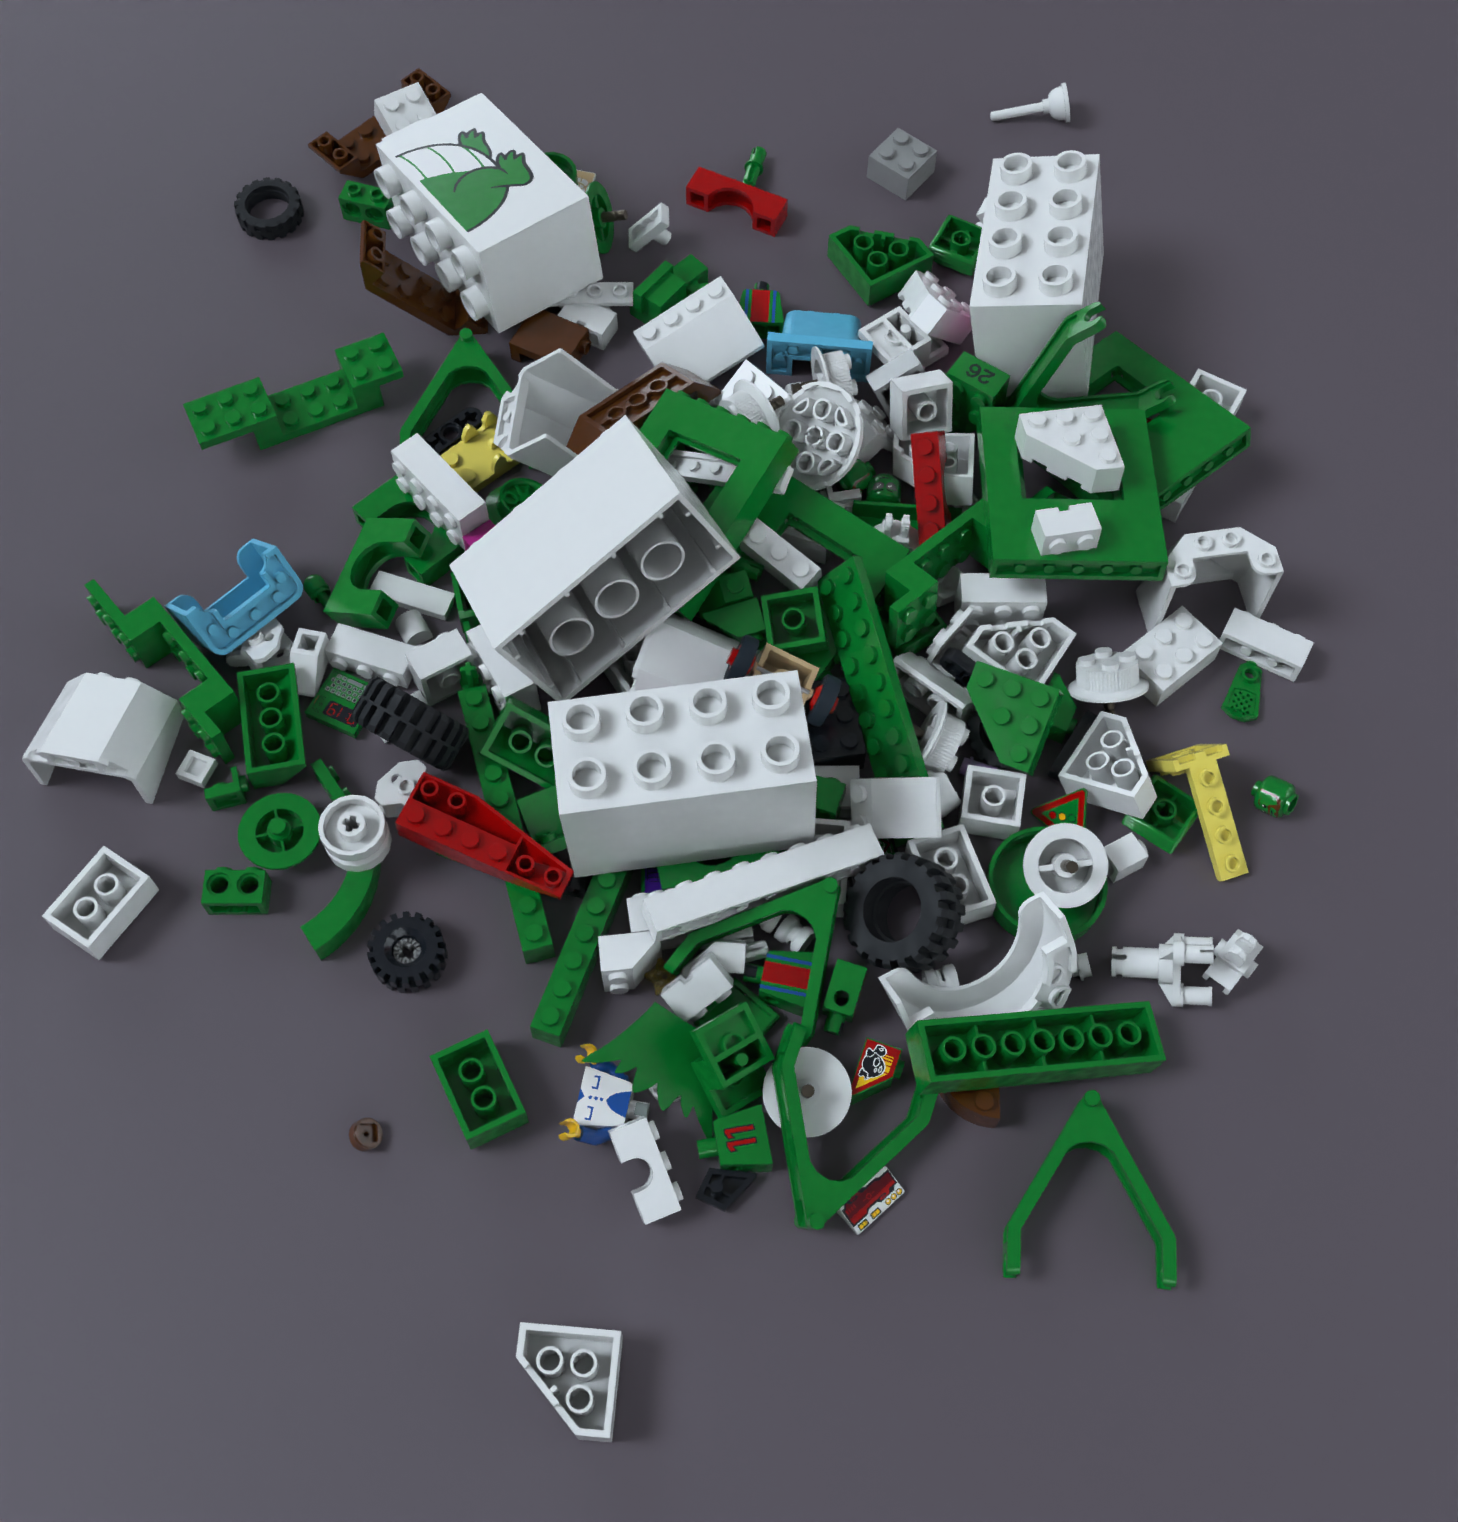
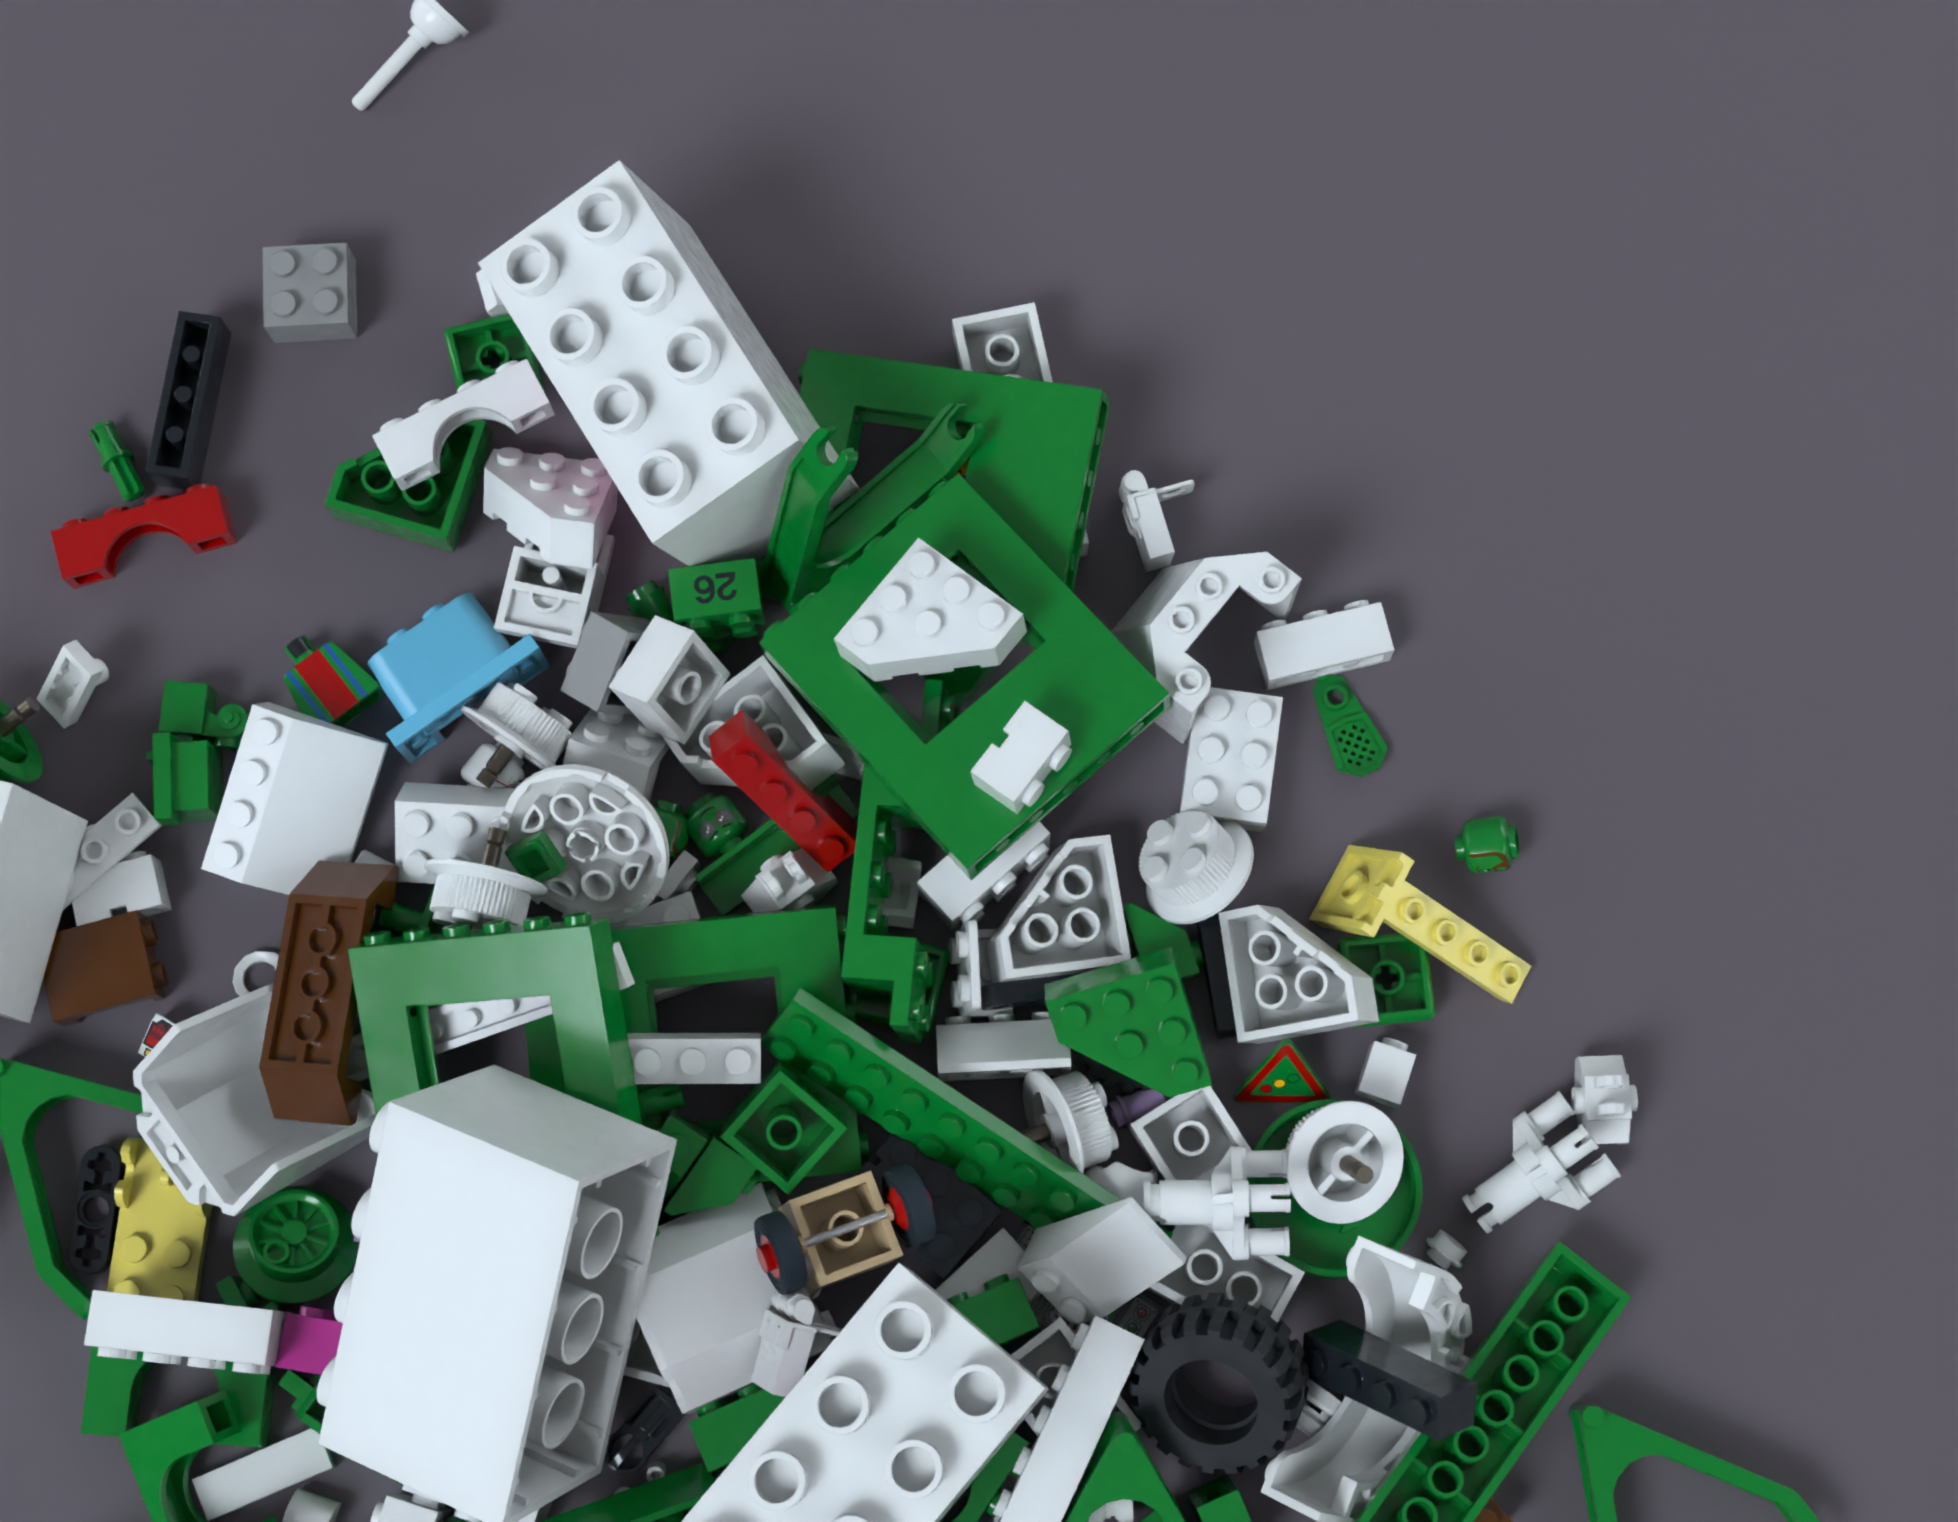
camera: 40 degrees left, 15 degrees up
(791, 424) = (536, 857): none -> green tile
(808, 162) = (188, 400): none -> black brick
(896, 235) = (415, 444): none -> white arch
(983, 828) = (1227, 1202): none -> white wheel
(997, 977) = (1390, 1379): none -> black brick
(1227, 514) = (1146, 519): none -> white piece

